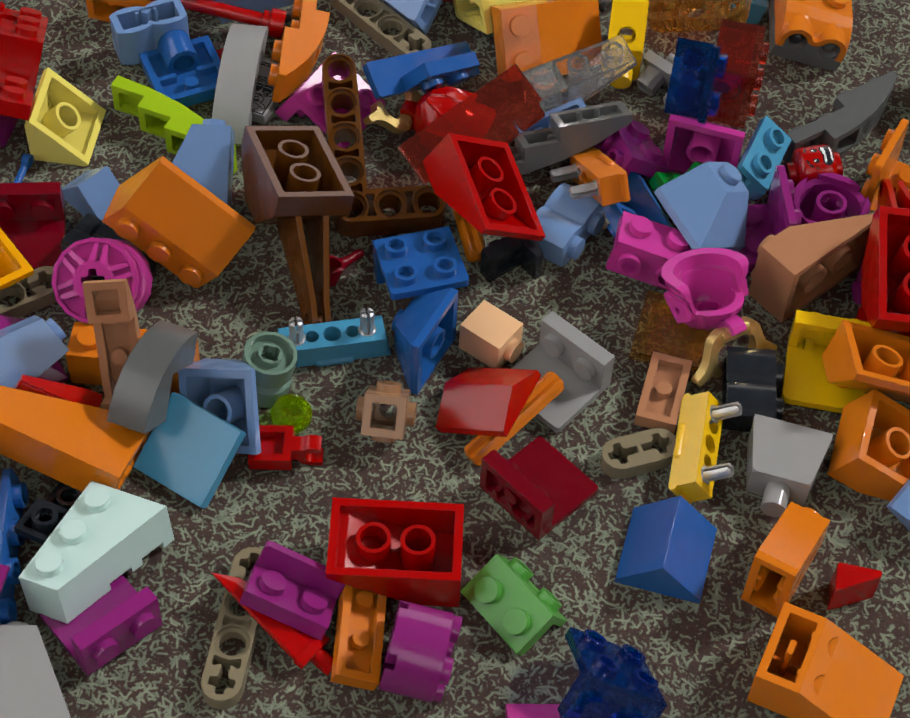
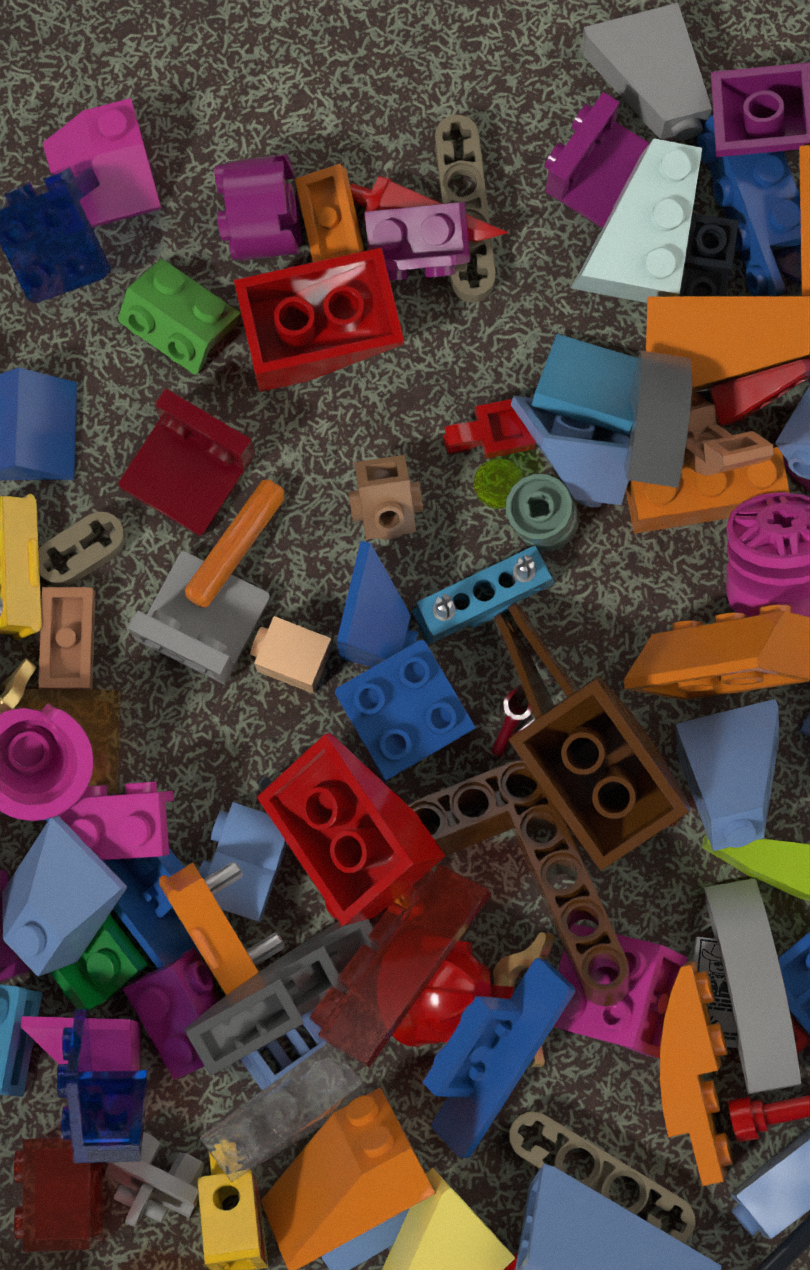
camera: 170 degrees right, 25 degrees up
(485, 400) = (273, 557): red slope -> none

